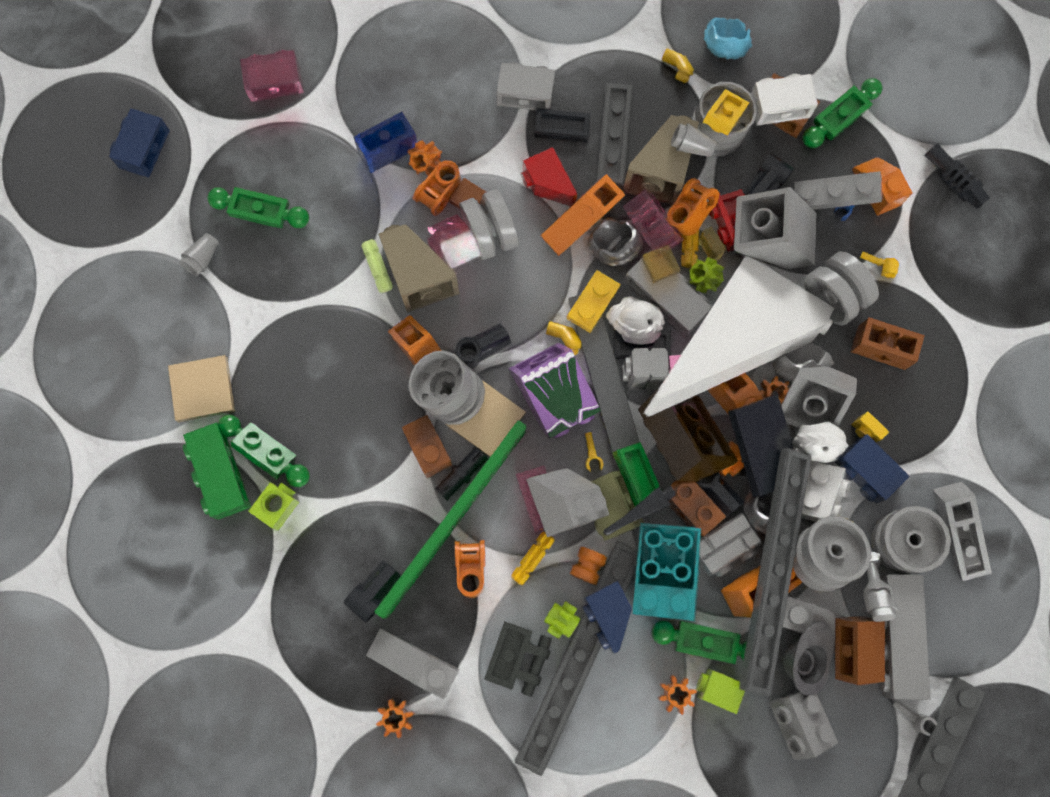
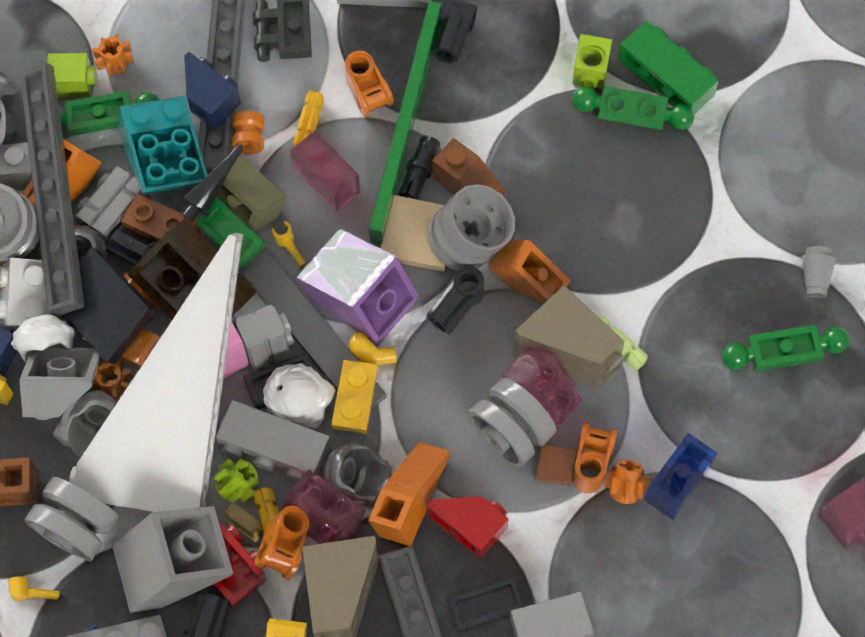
camera: 160 degrees right, 10 degrees down
(201, 388) = (732, 142): tan tile -> none
(562, 620) = (253, 73): lime gear -> none
(566, 500) = (293, 163): light grey slope -> none
(661, 263) = (293, 458): clear yellow tile -> none
(692, 141) = (310, 593): light grey cone -> none

